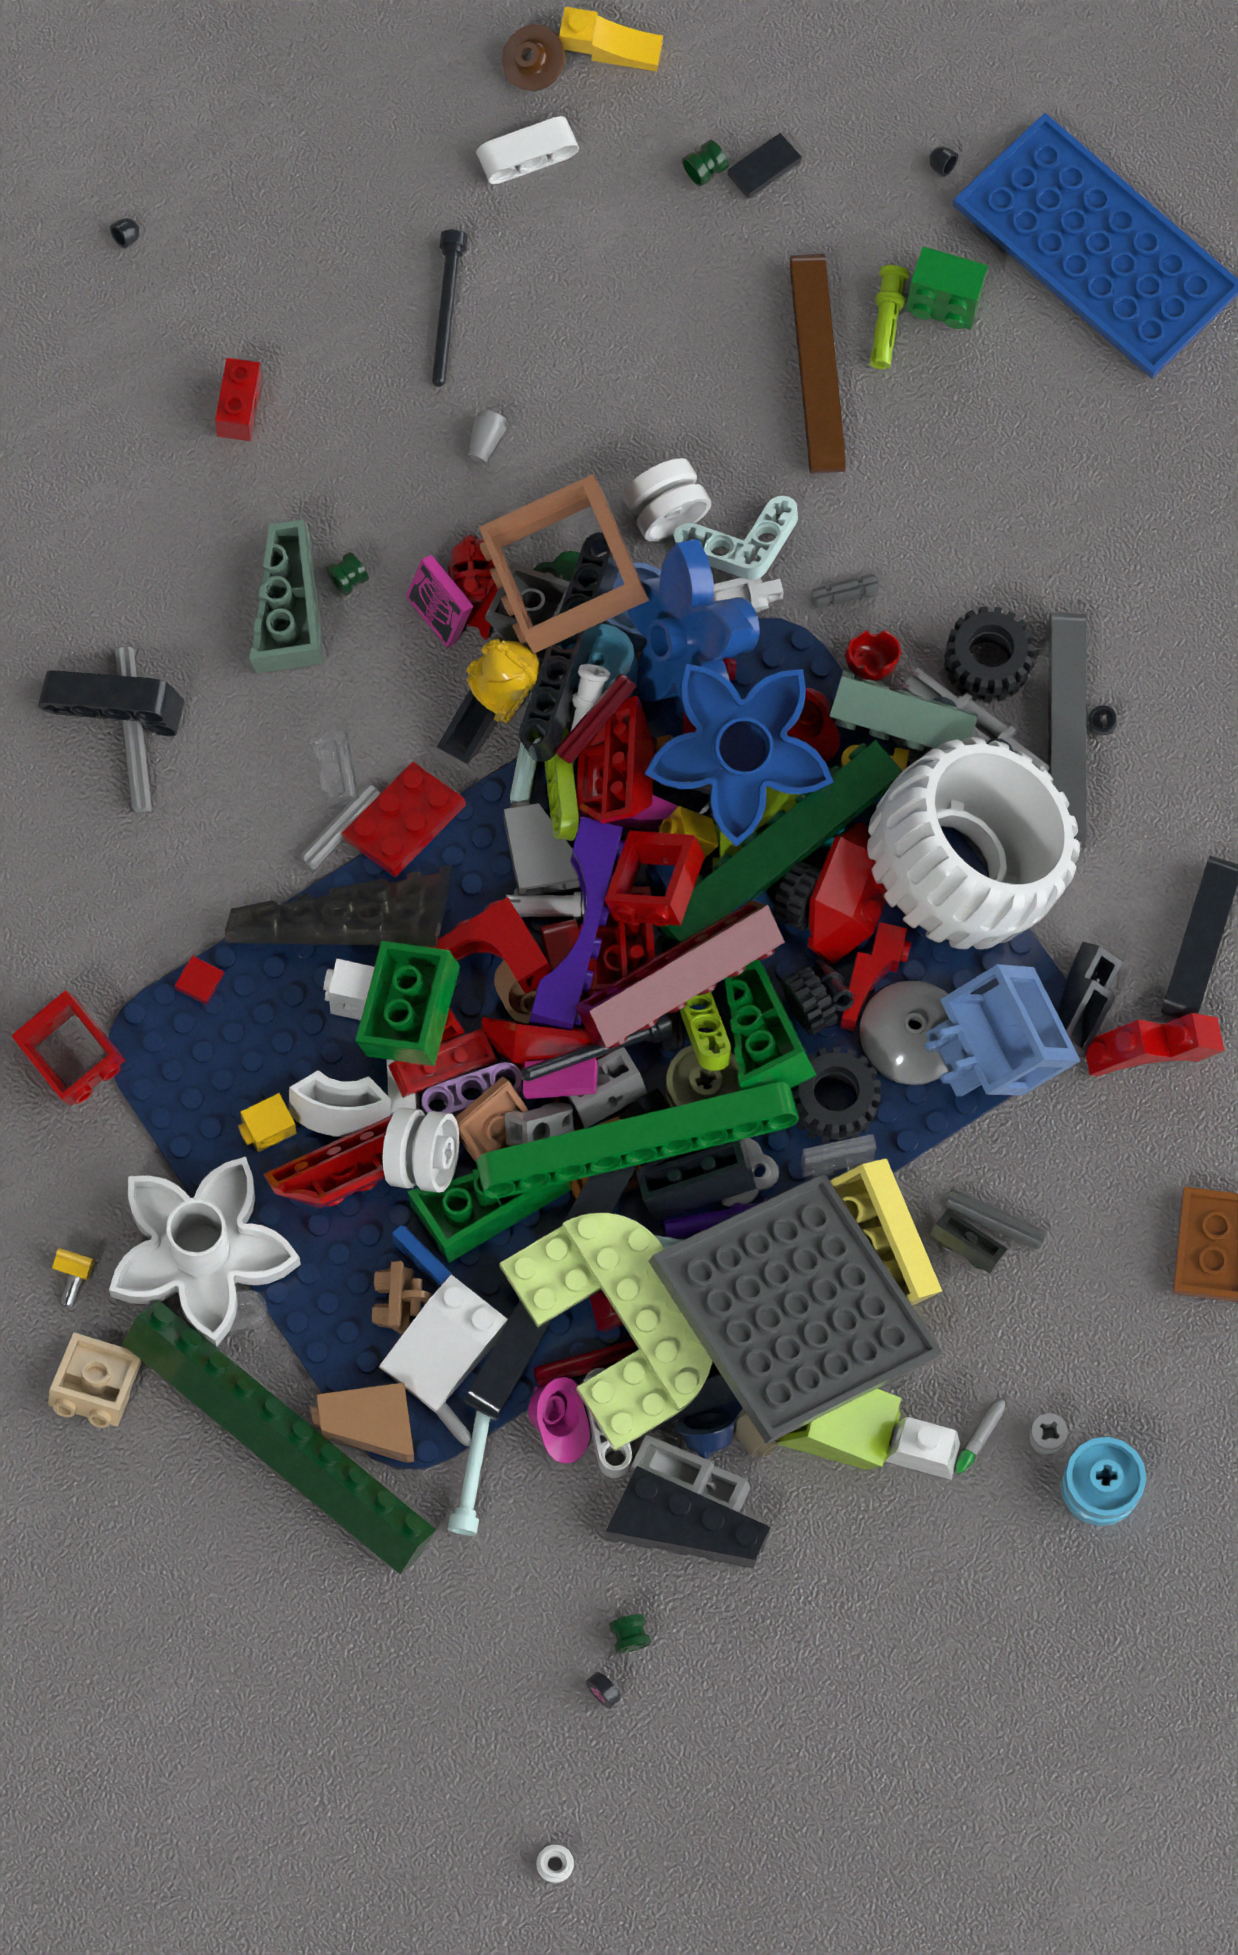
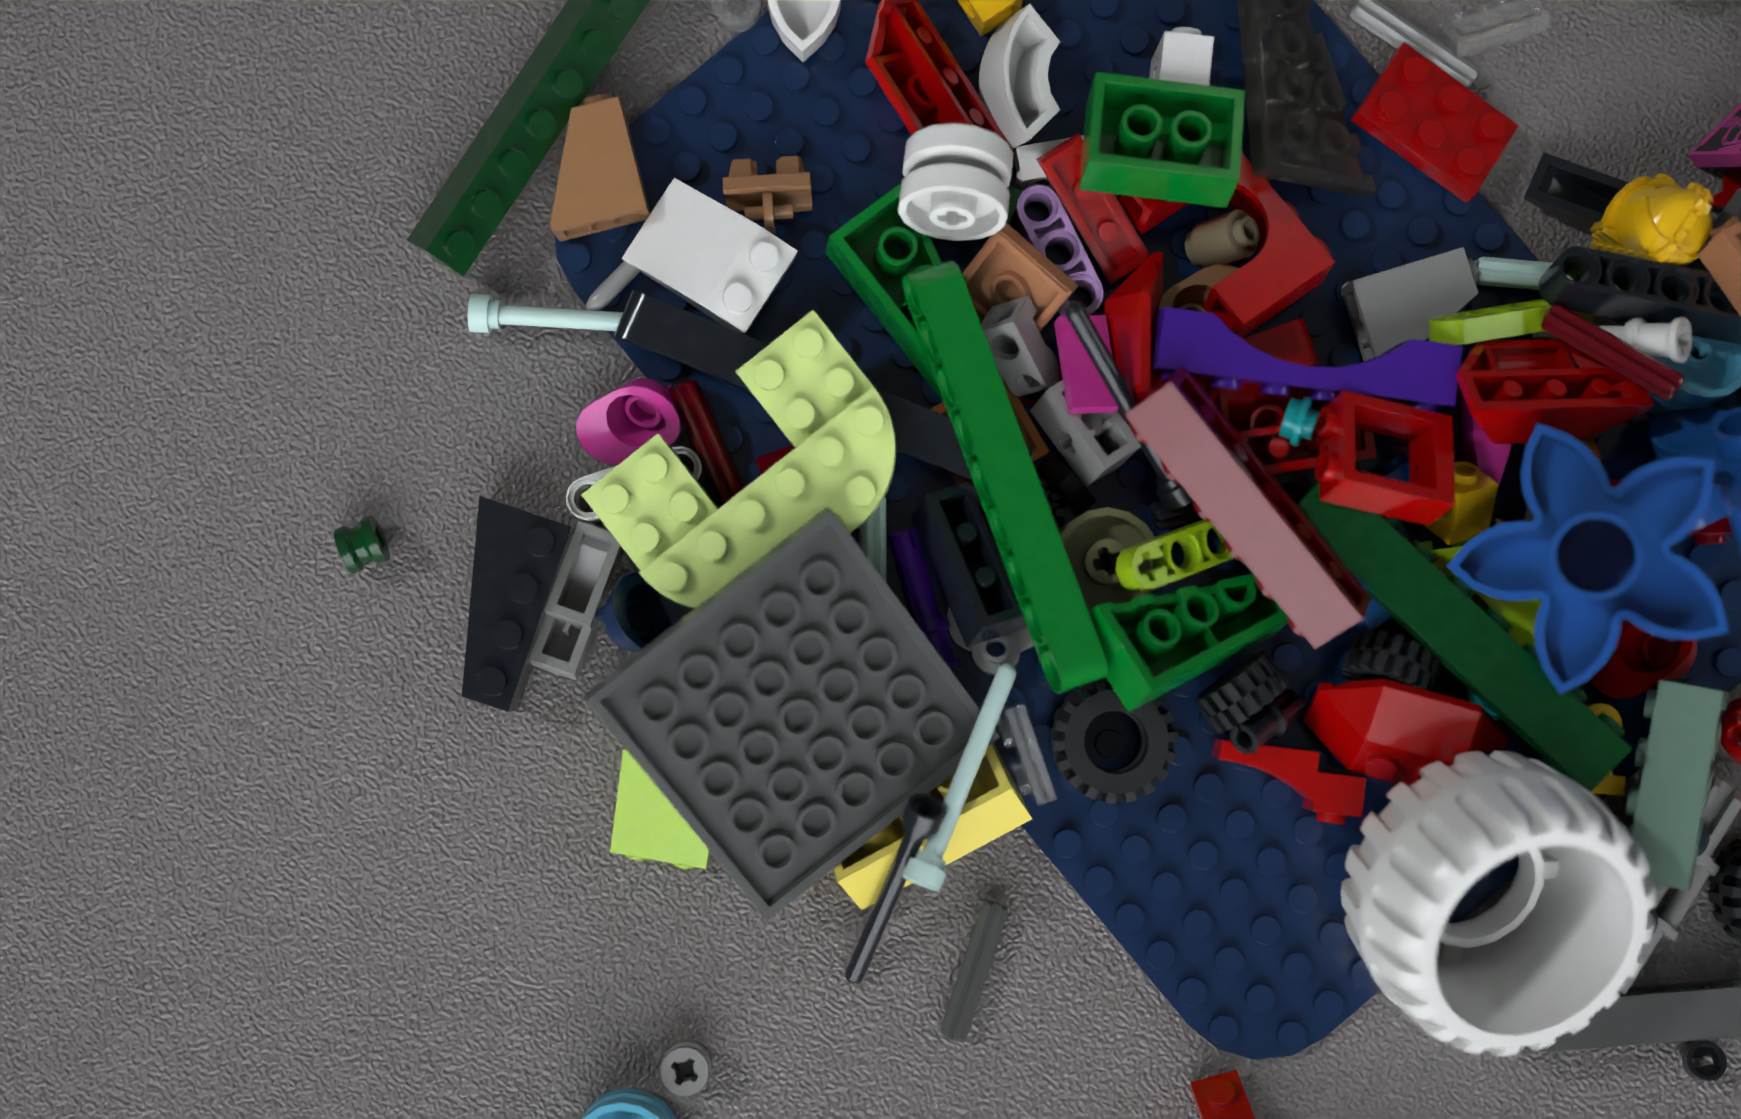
camera: 90 degrees right, 15 degrees up
(420, 1256) = (825, 214): blue tile -> none
(477, 975) = (1222, 239): none -> dark tan brick
(549, 905) = (1335, 321): white pin -> none
(561, 1853) = (49, 481): white plate -> none
(603, 1690) = (285, 517): black tile -> none
(621, 933) = (1299, 421): none -> teal plate
(878, 1225) = (921, 819): none -> black piece
(890, 1042) = (1186, 830): light grey dish -> none
(913, 1226) = (928, 865): none -> light aqua piece
(924, 1447) = (644, 904): white torso -> none
(968, 1242) = (935, 939): pearl dark grey plate -> none
(980, 1436) = (648, 963): light grey piece -> none
(1003, 1038) = (1222, 963): medium blue piece -> none
(1087, 994) = (1297, 1071): black slope -> none

